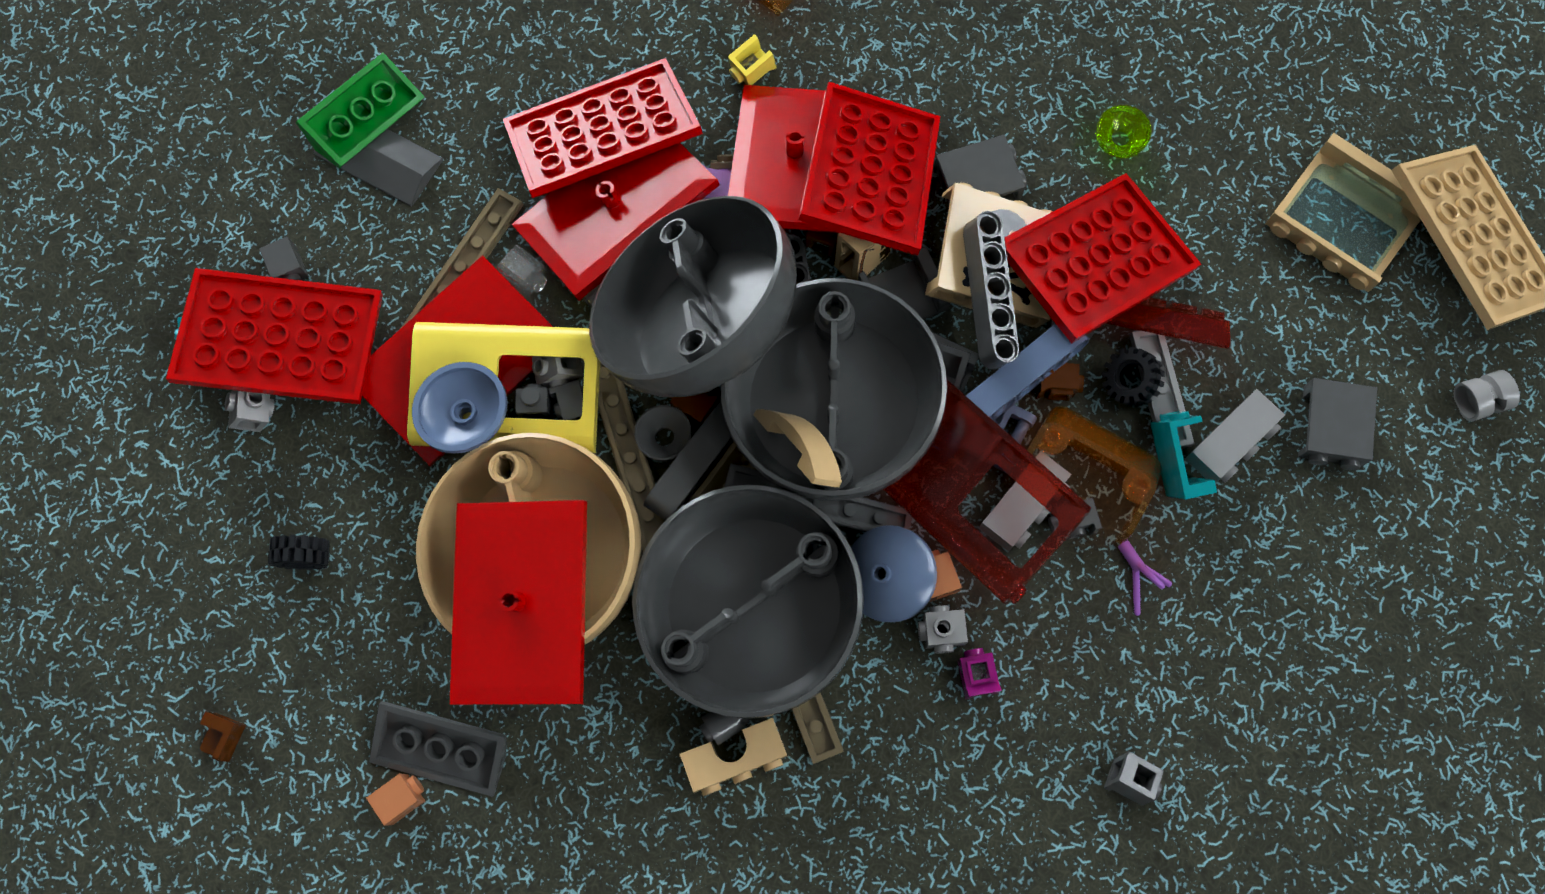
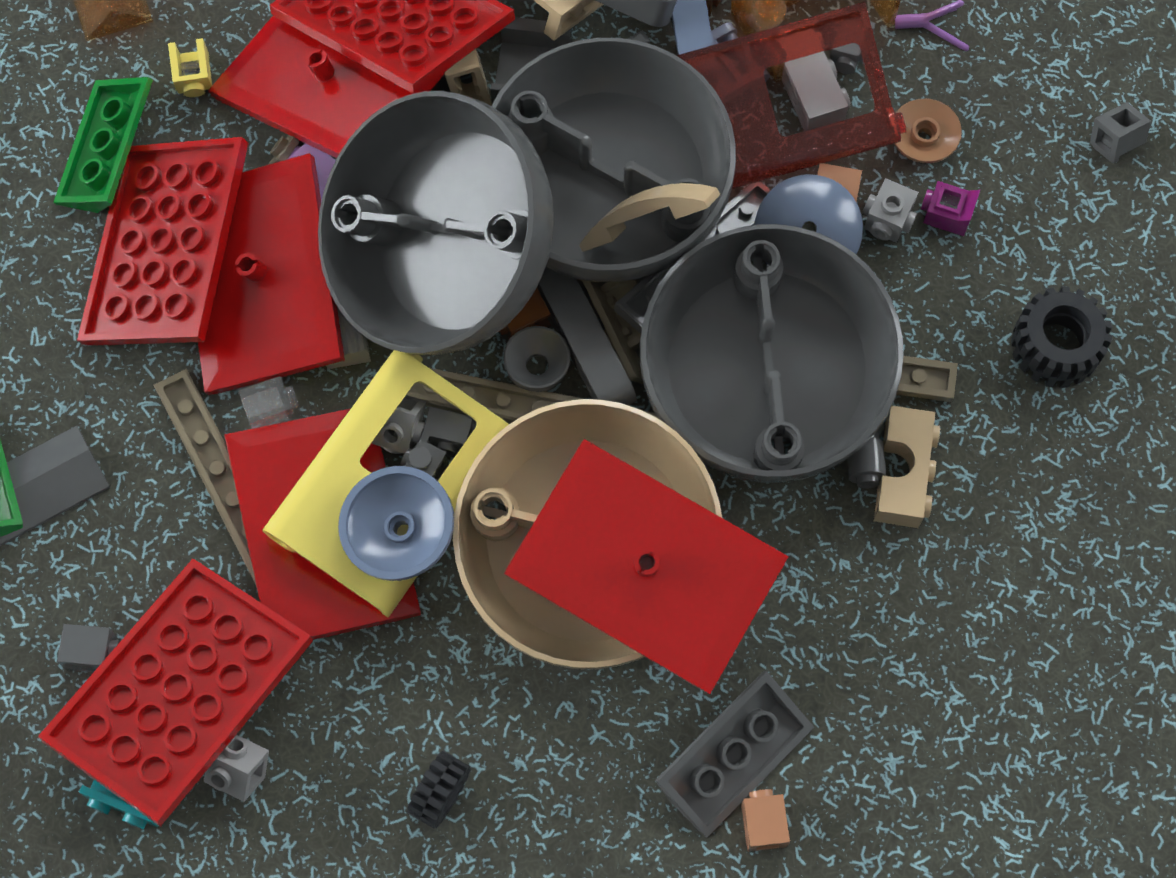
camera: 65 degrees left, 5 degrees down
(659, 41) = (103, 143): none -> green slope
(945, 824) = (1074, 313): none -> black tyre
(1051, 616) = (937, 121): none -> medium nougat dish

